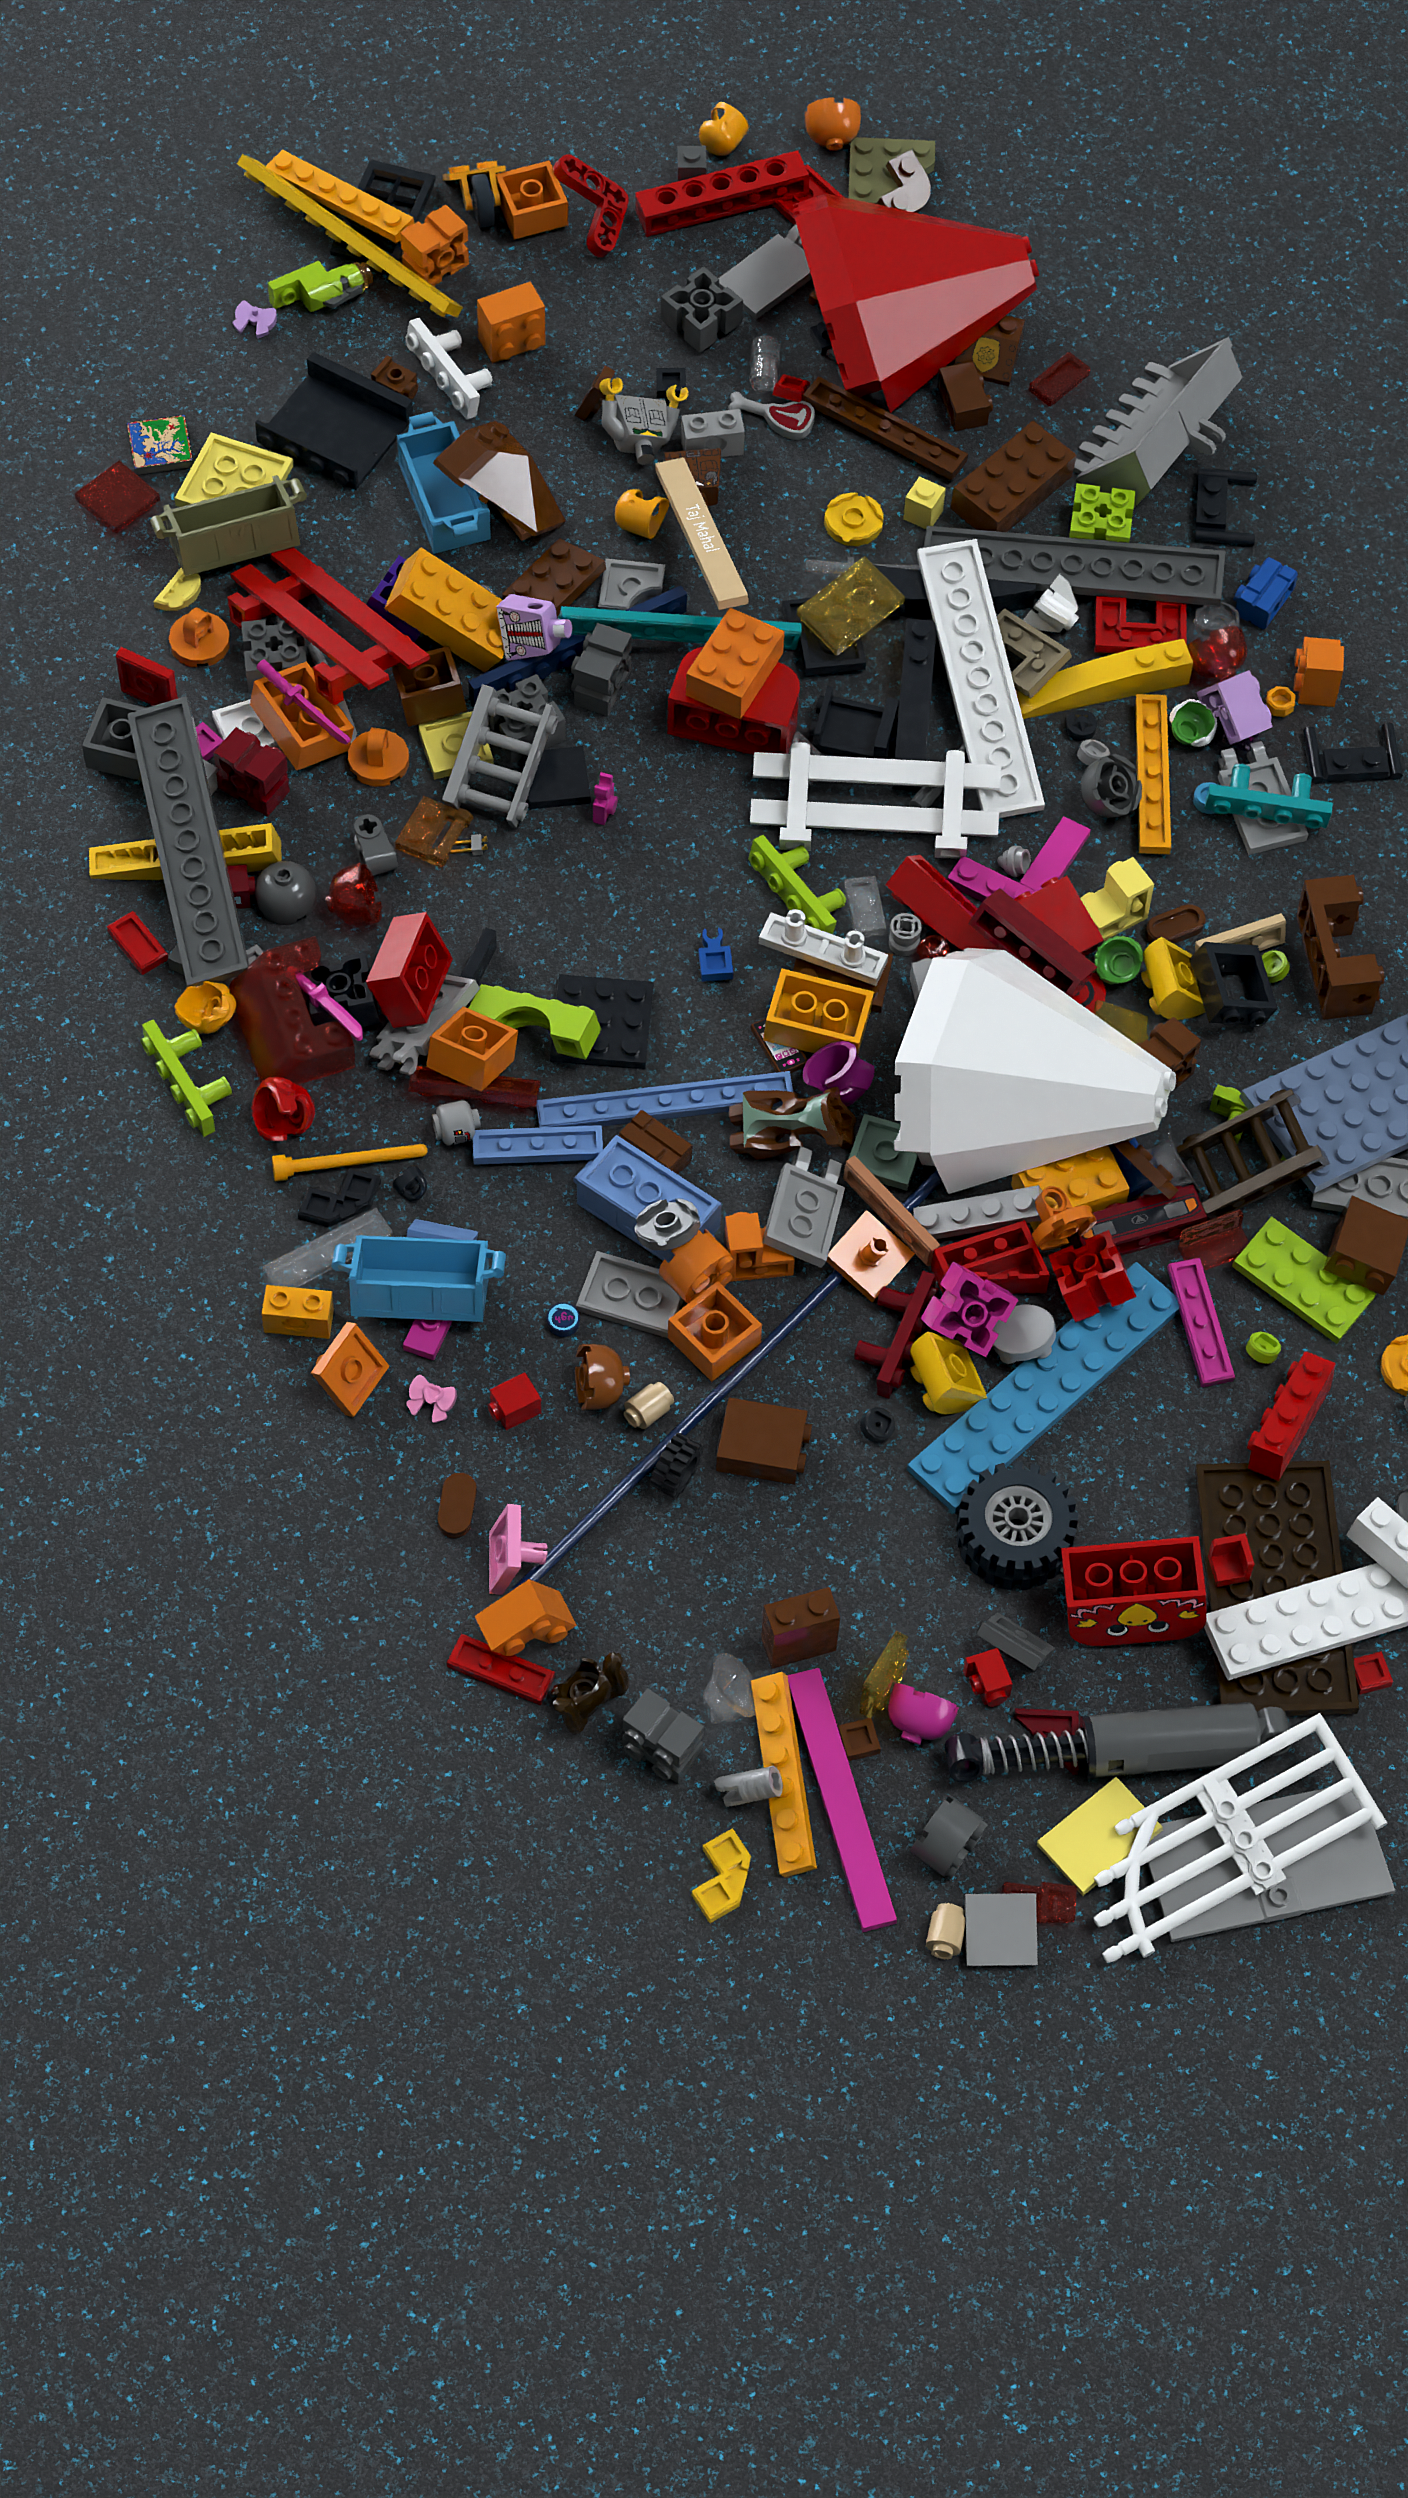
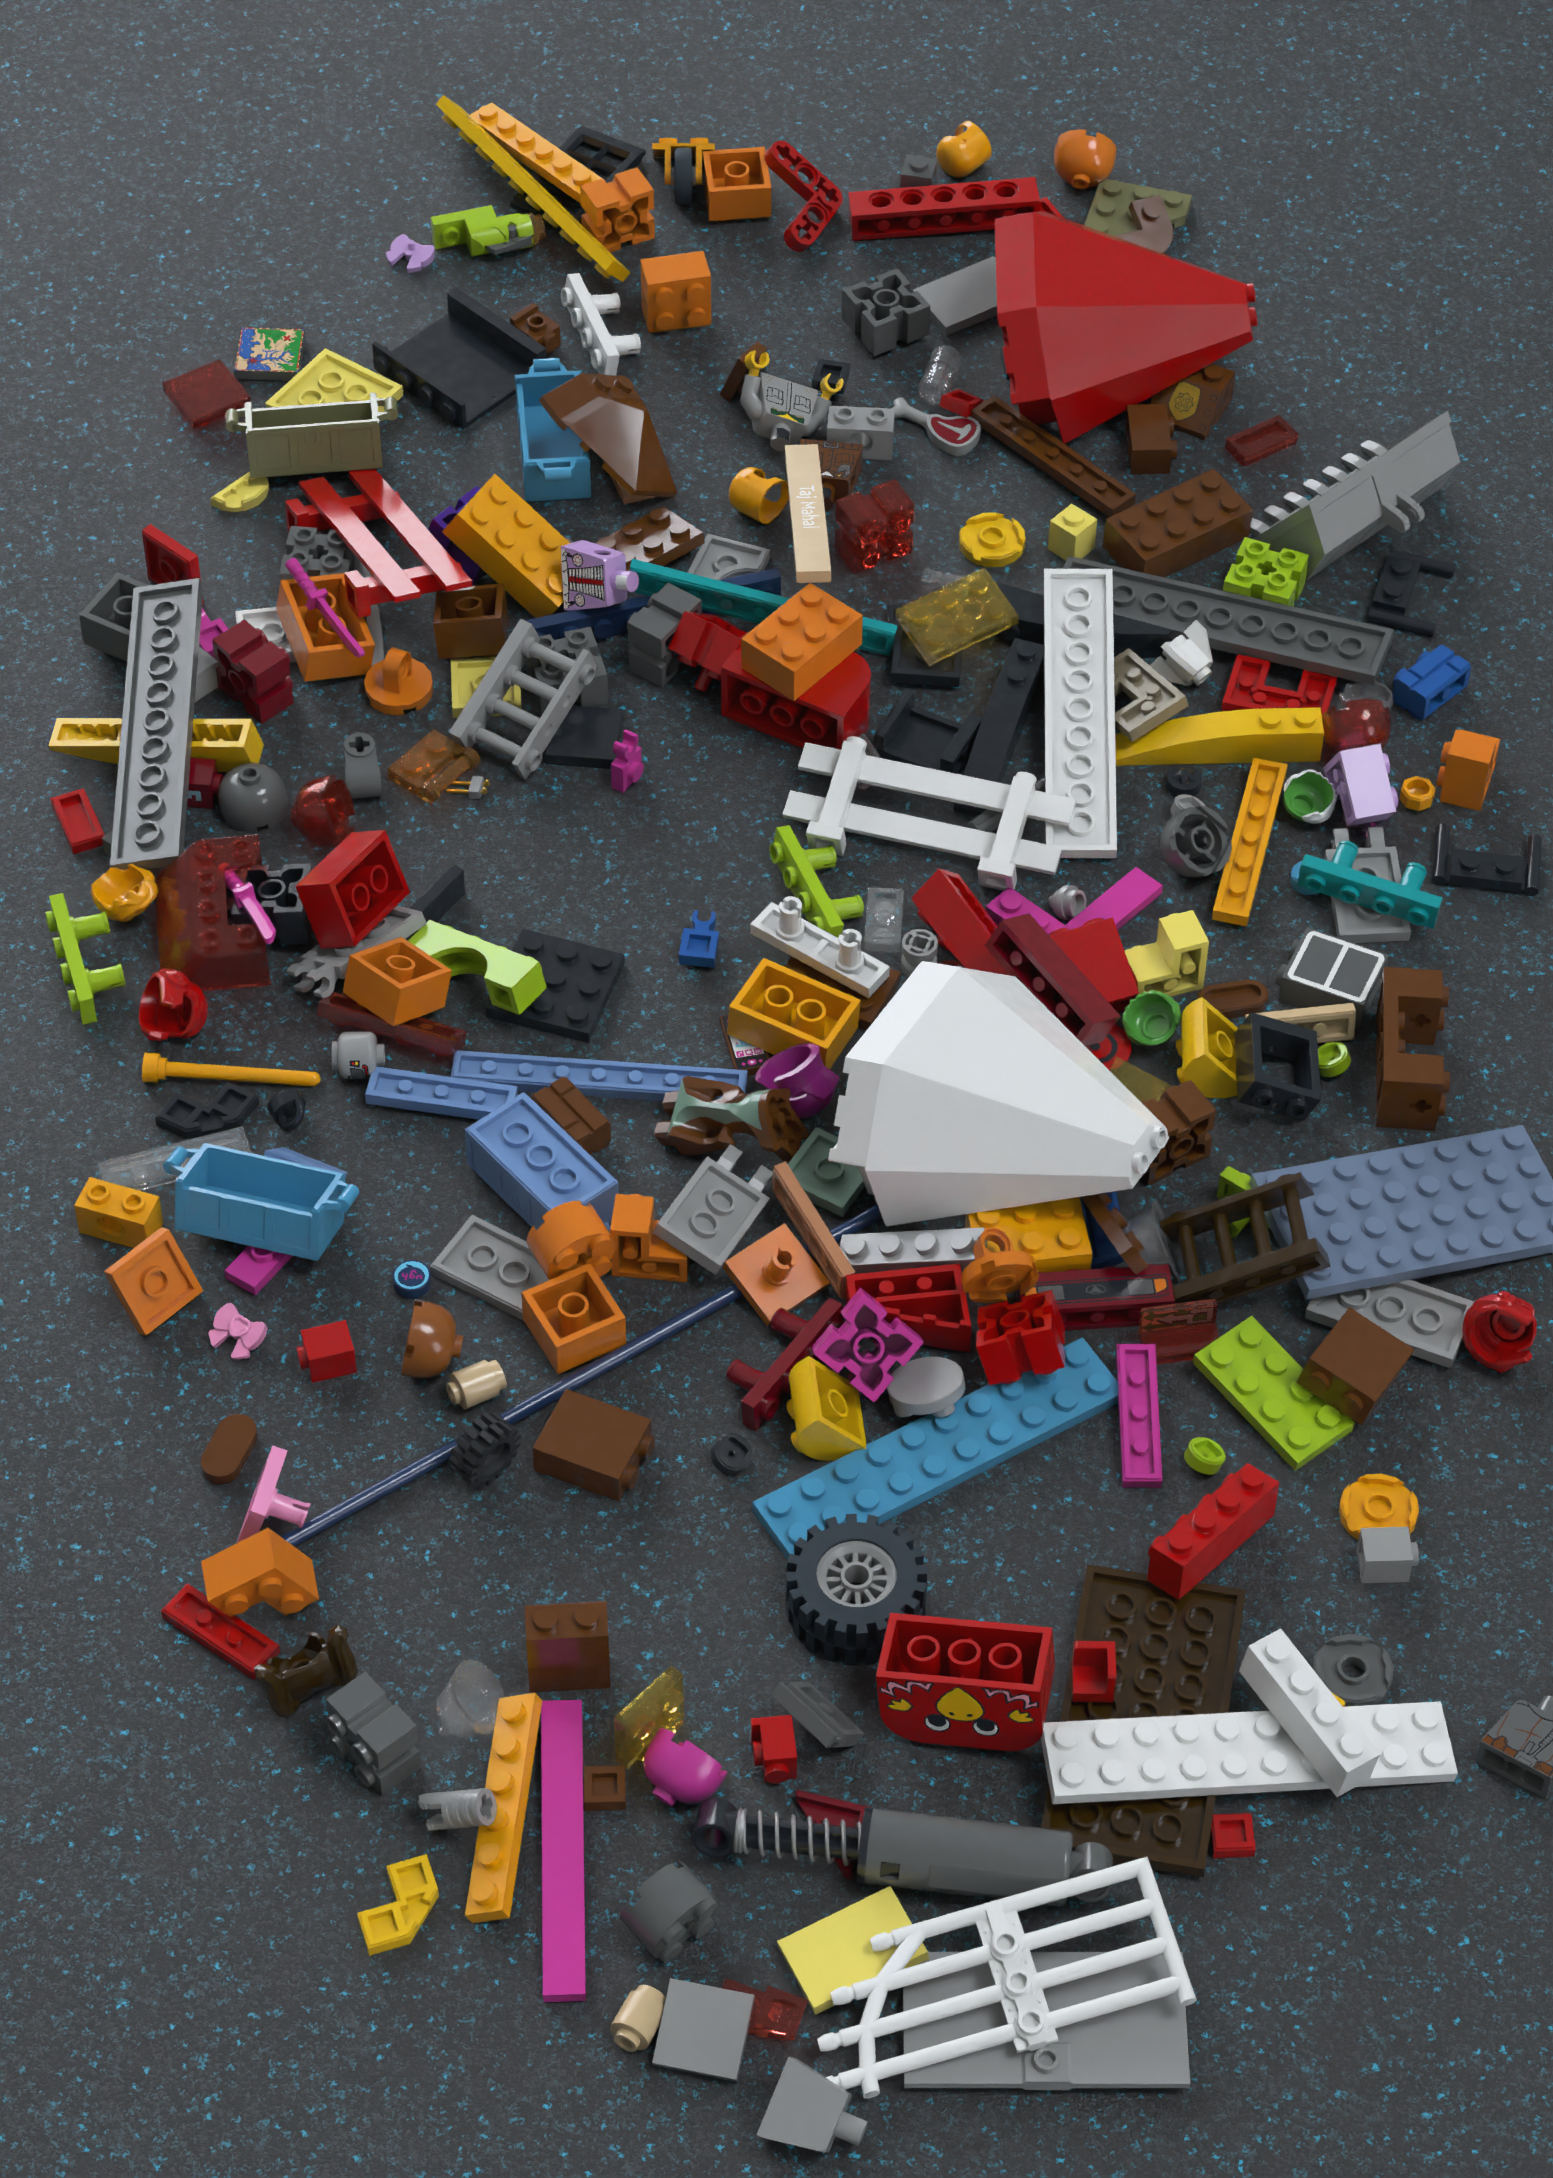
camera: 15 degrees right, 10 degrees down
(199, 638) = (246, 539): orange tile -> none
(647, 671) = (705, 642): none -> red brick
(656, 1236) = (546, 1188): dark grey tile -> none
(755, 528) = (874, 526): none -> clear red brick
(1106, 1980) = (809, 2111): none -> light grey torso
(1253, 887) = (1331, 972): none -> dark grey brick

